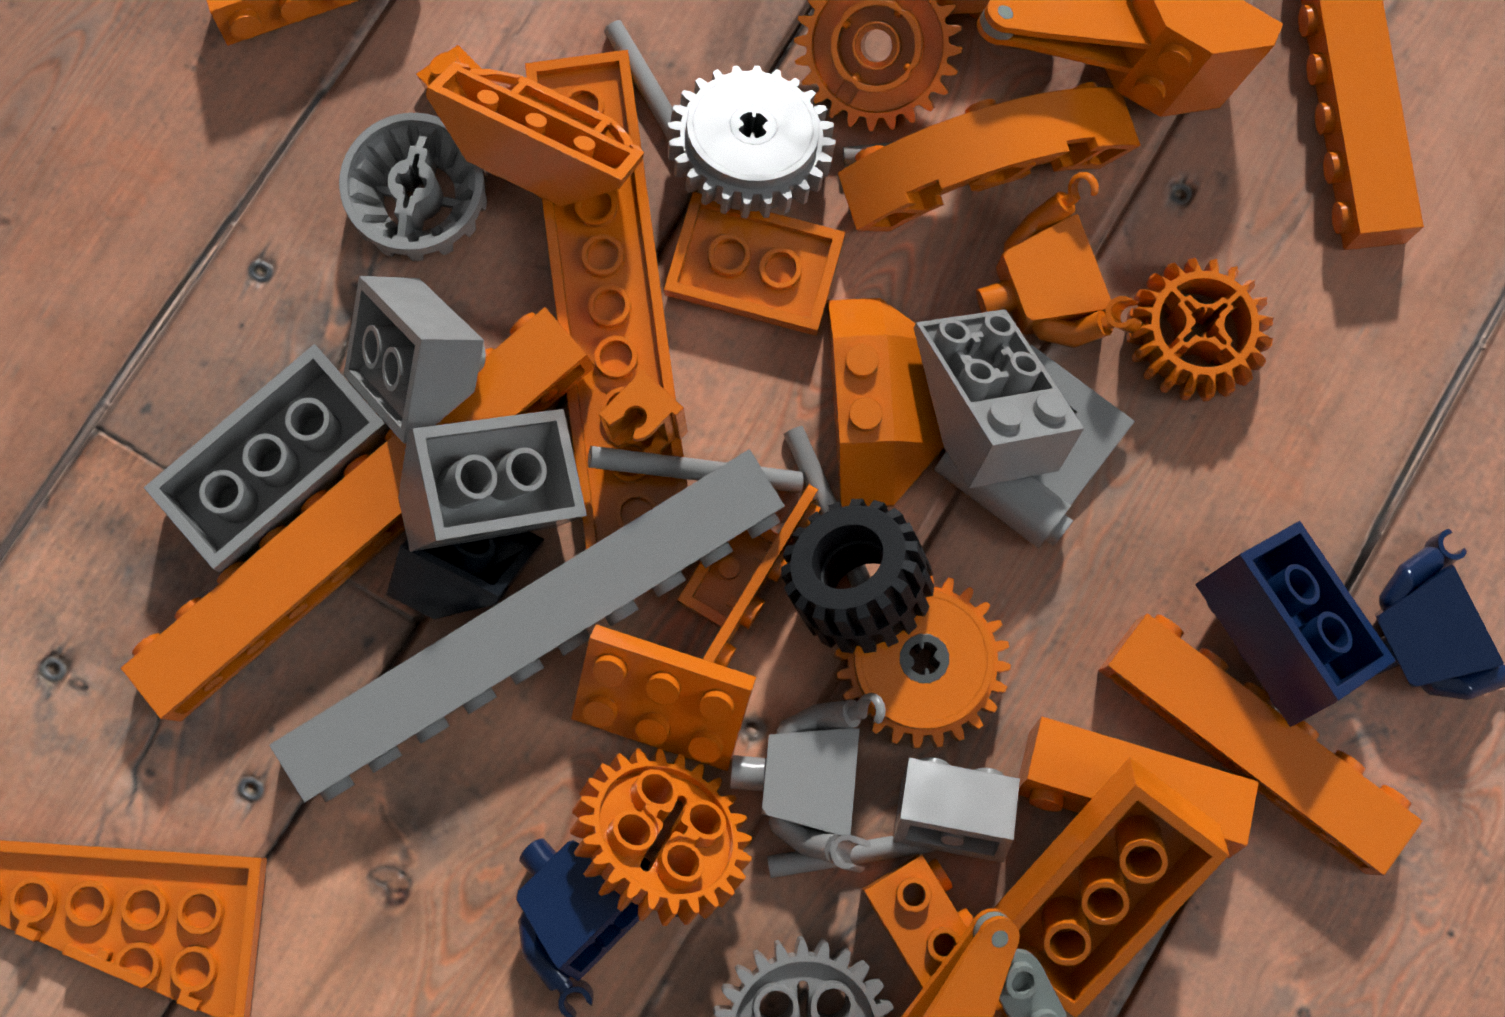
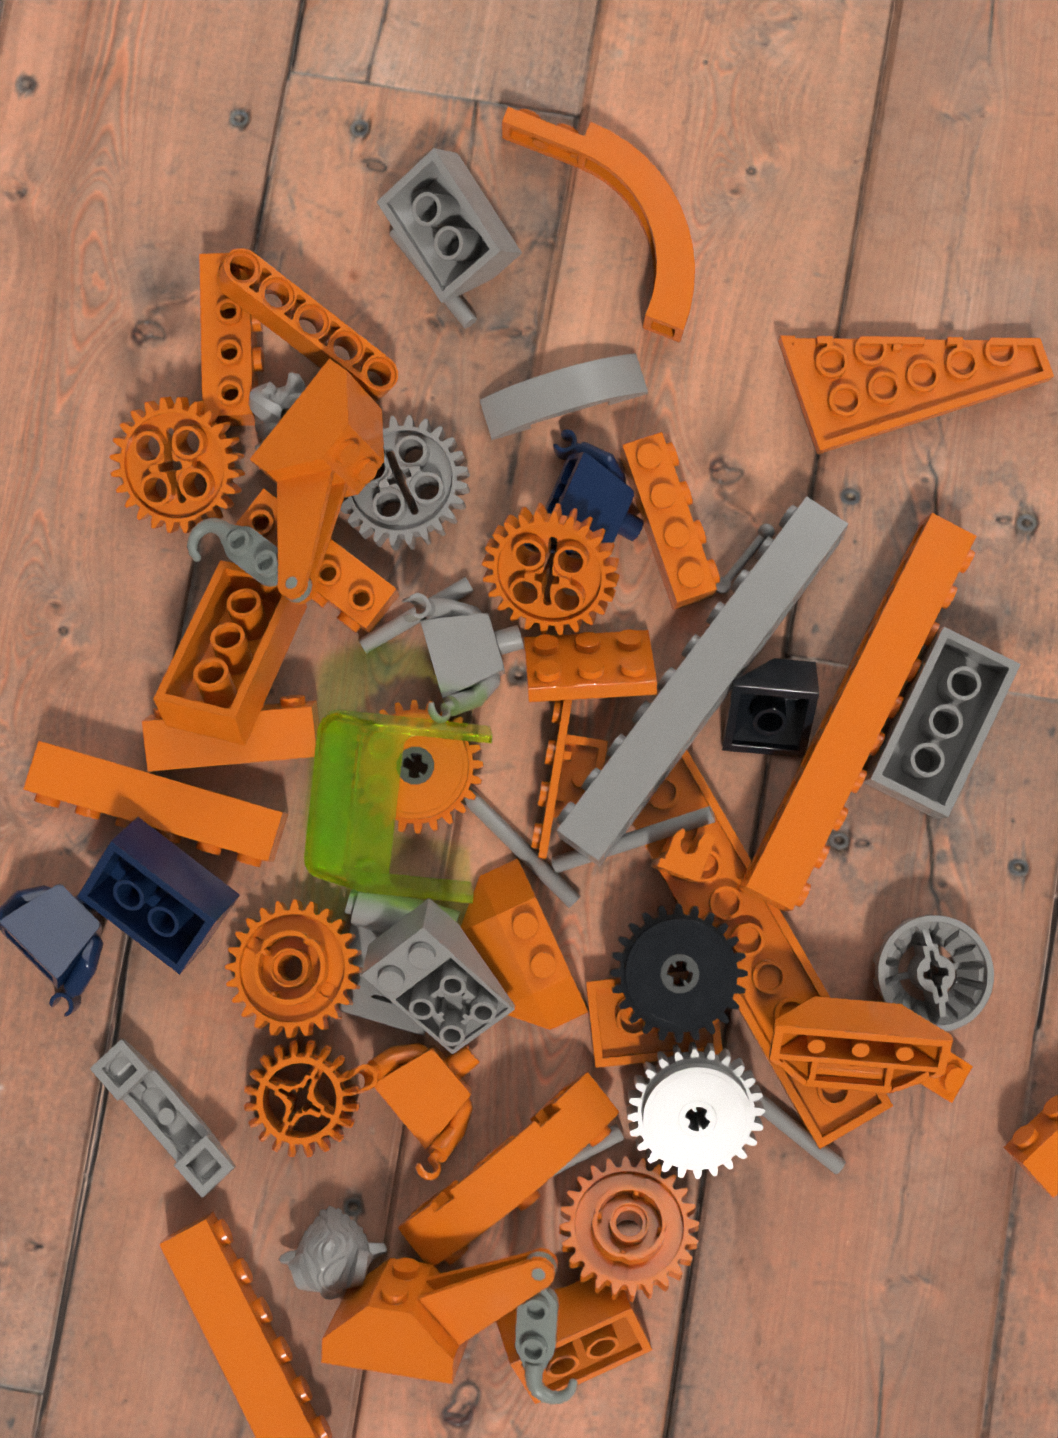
camera: 155 degrees right, 5 degrees up
(410, 353) = (875, 838): light grey slope -> none
(455, 739) = (764, 531): none -> light grey hinge
(488, 479) = (776, 766): light grey slope -> none
(488, 844) = (668, 521): none -> orange brick
(710, 331) = (704, 954): none -> black gear
(842, 542) = (512, 816): black tyre -> none
(956, 809) = (353, 671): light grey brick -> none
(1010, 642) = (357, 802): none -> clear neon green windscreen
(1196, 471) = (263, 962): none -> orange gear
(1225, 146) = (332, 1255): none -> light grey hair
(1364, 371) = (166, 1116): none -> light grey slope

